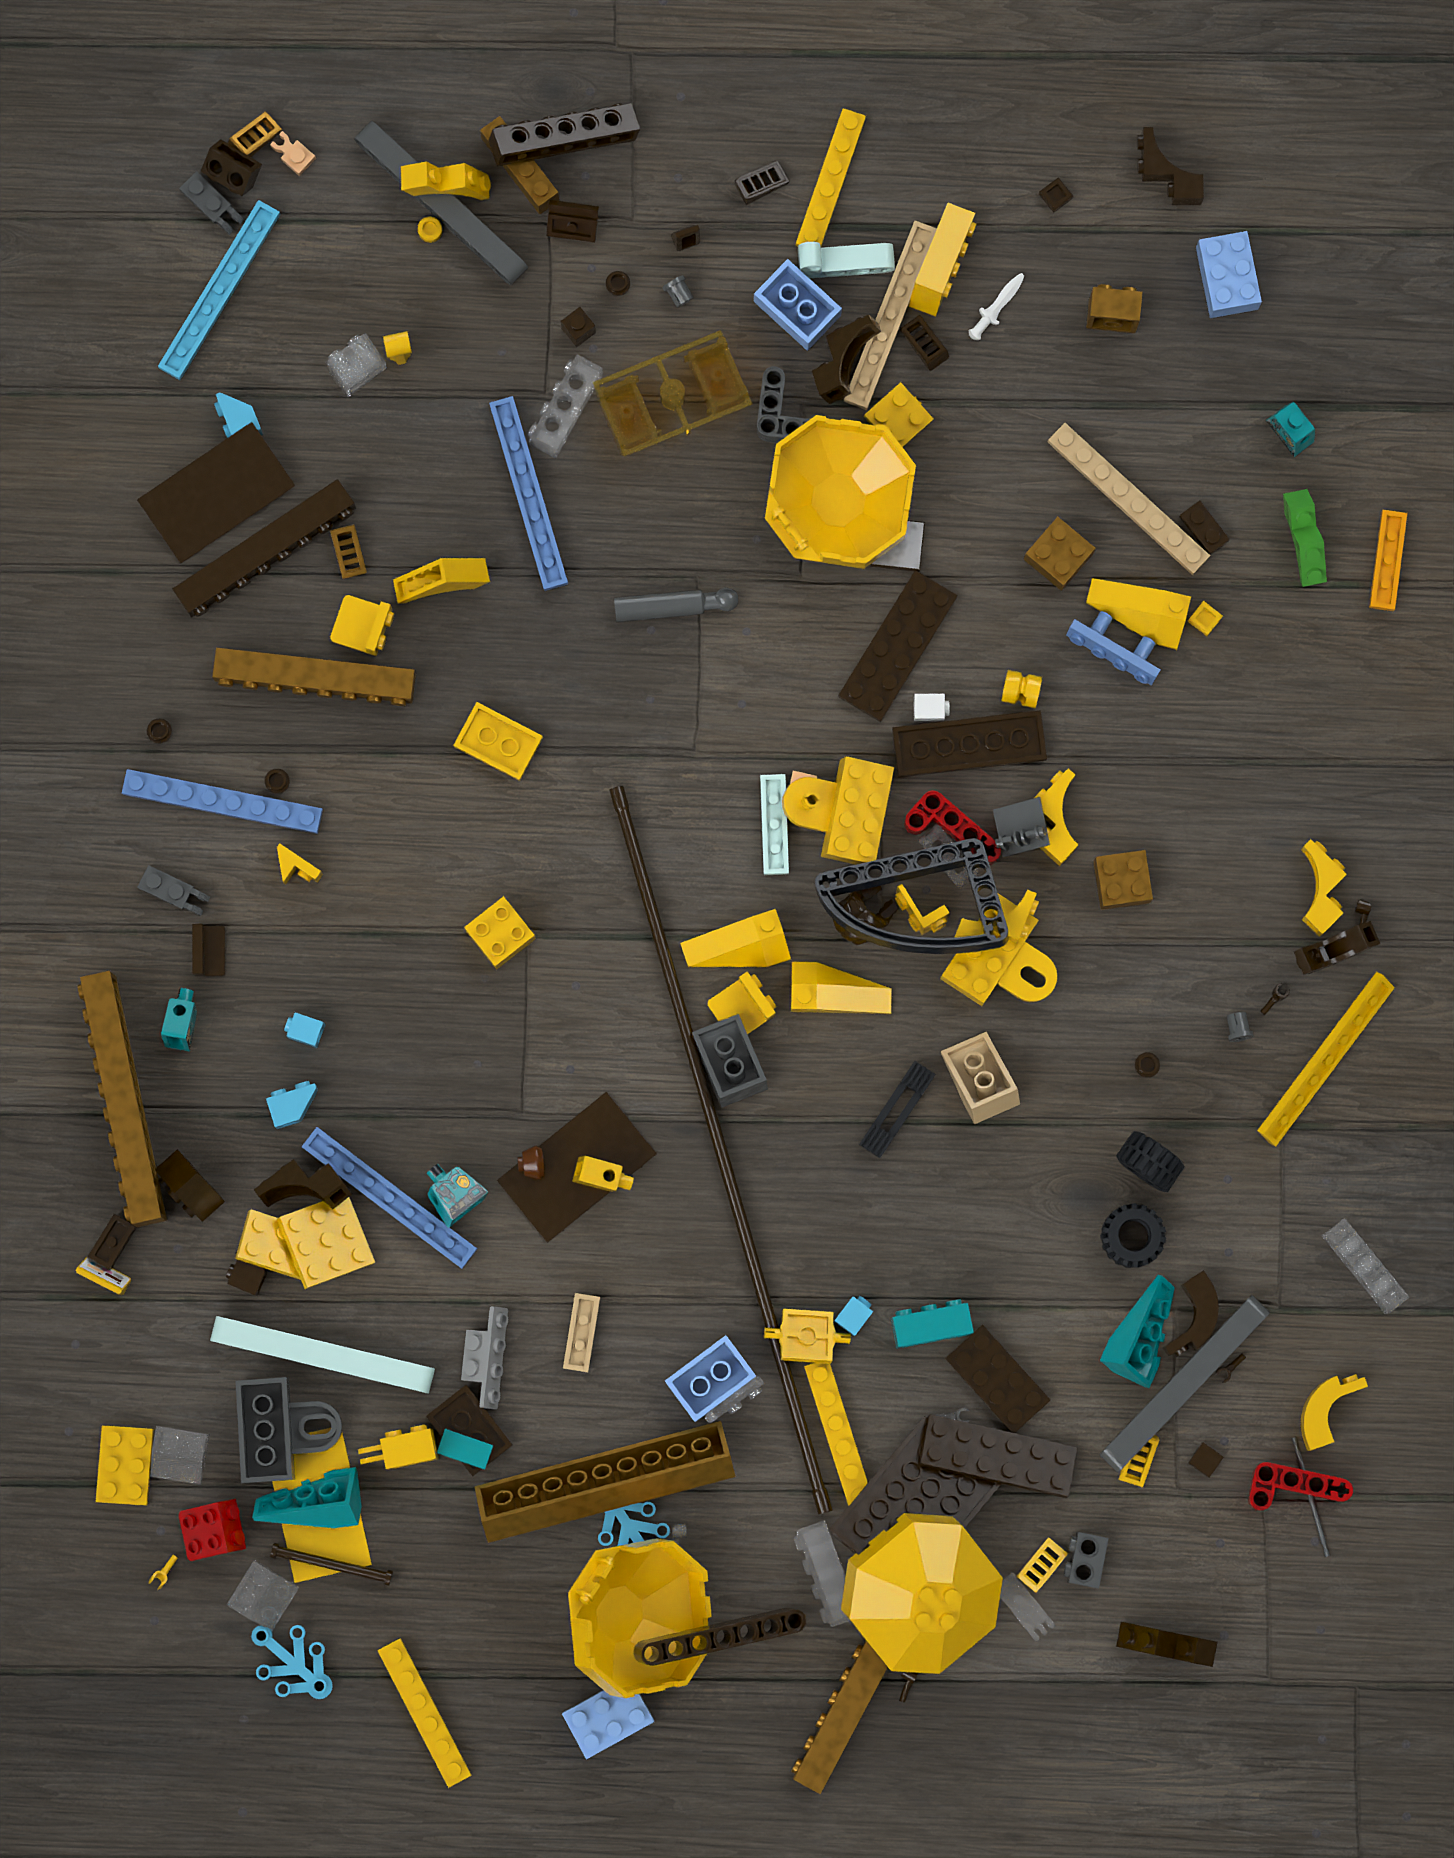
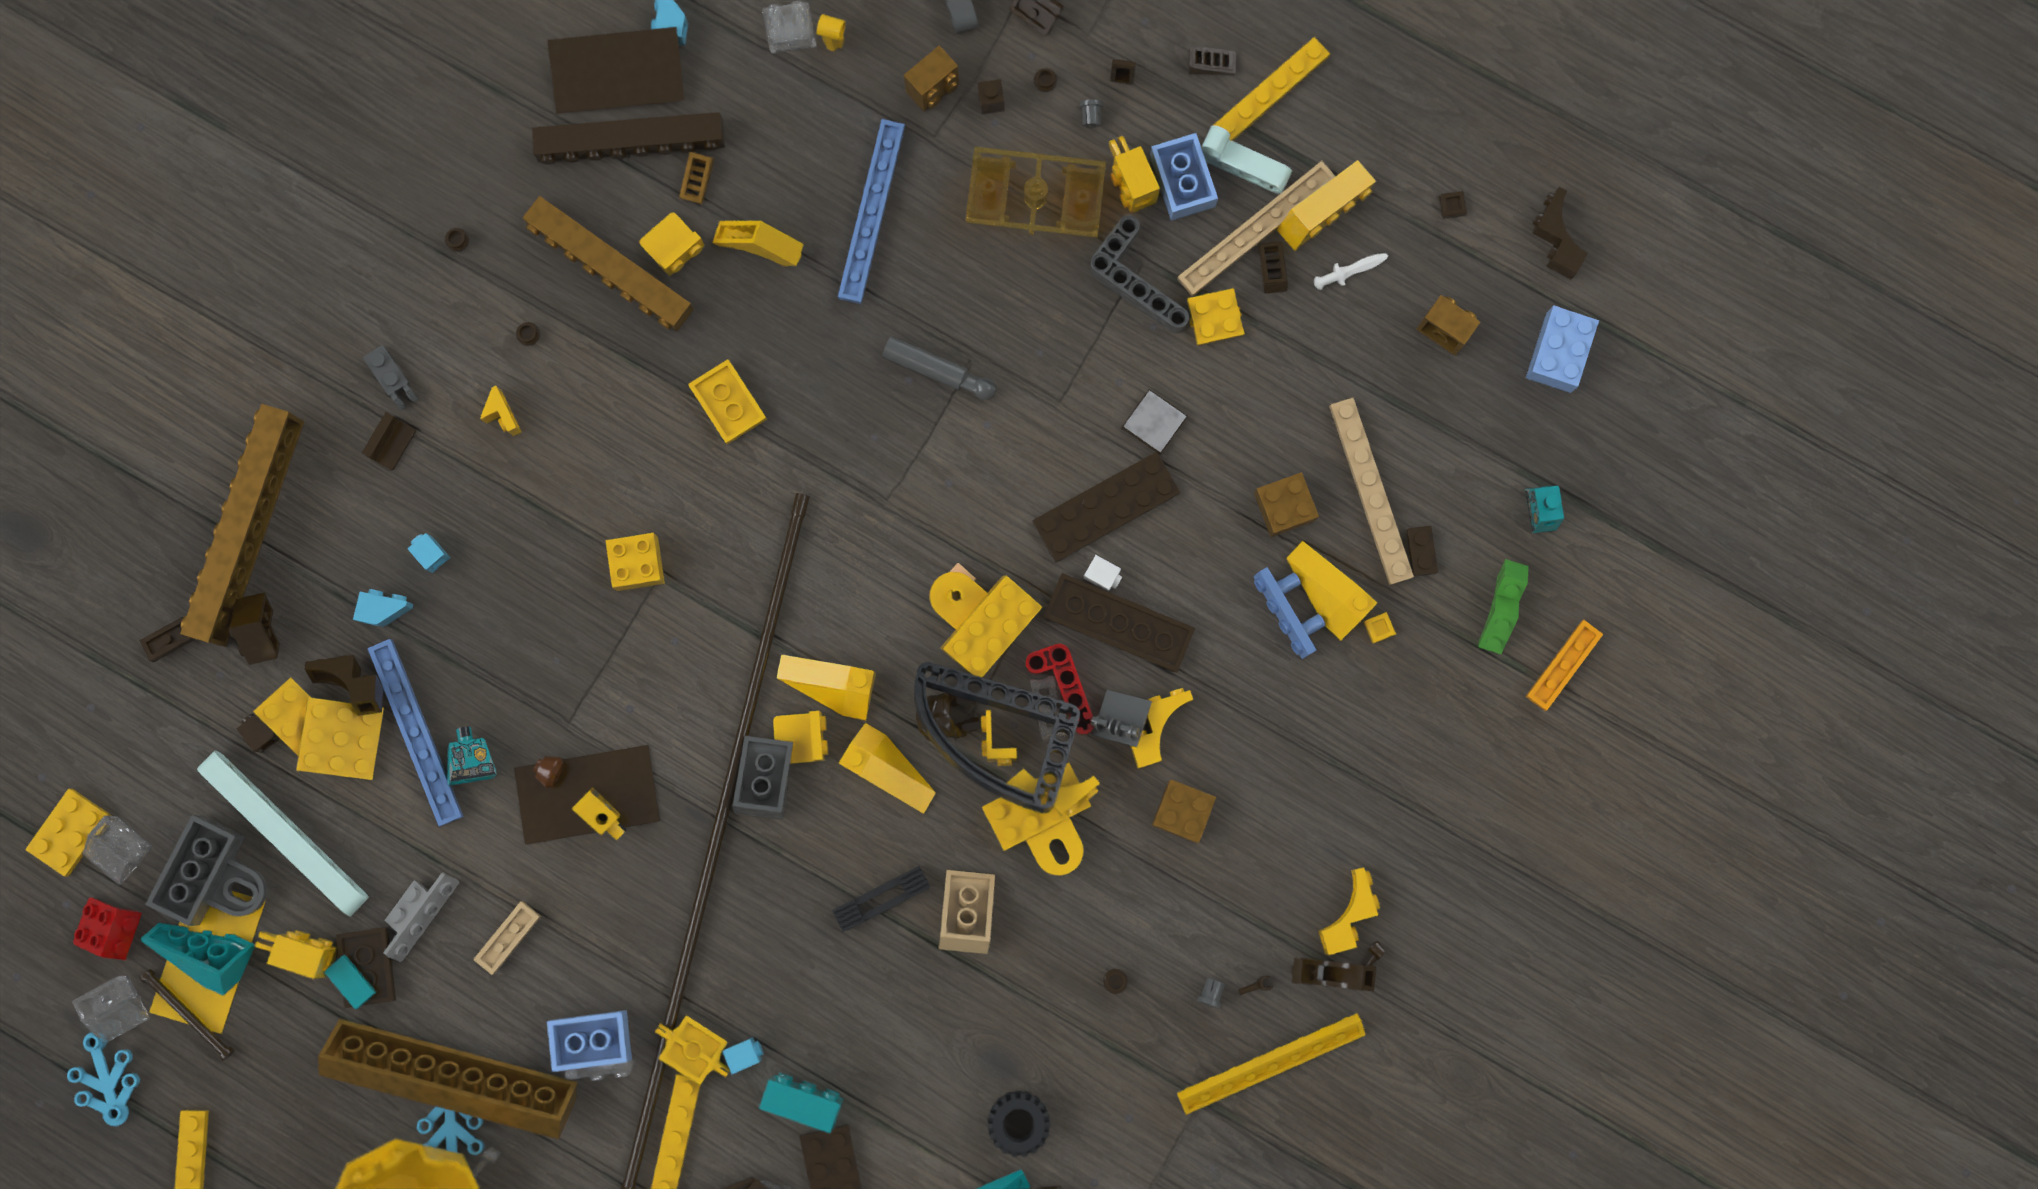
camera: 30 degrees right, 0 degrees up
(109, 1279) = (148, 673): slope -> none
(162, 1575) = (45, 941): yellow hand -> none
(177, 1029) = (328, 487): teal torso -> none
(222, 801) = (474, 326): medium blue plate -> none
(516, 340) = (932, 79): none -> pearl gold brick
(552, 442) = (938, 168): clear brick -> none
(751, 329) = (1133, 176): none -> yellow brick
(774, 825) = (915, 600): light aqua plate -> none
(840, 492) = (1128, 349): yellow windscreen -> none
(844, 344) = (1204, 230): dark brown arch -> none
(1021, 689) = (1189, 600): yellow wheel -> none
(1150, 1161) = (1068, 1069): black tyre -> none

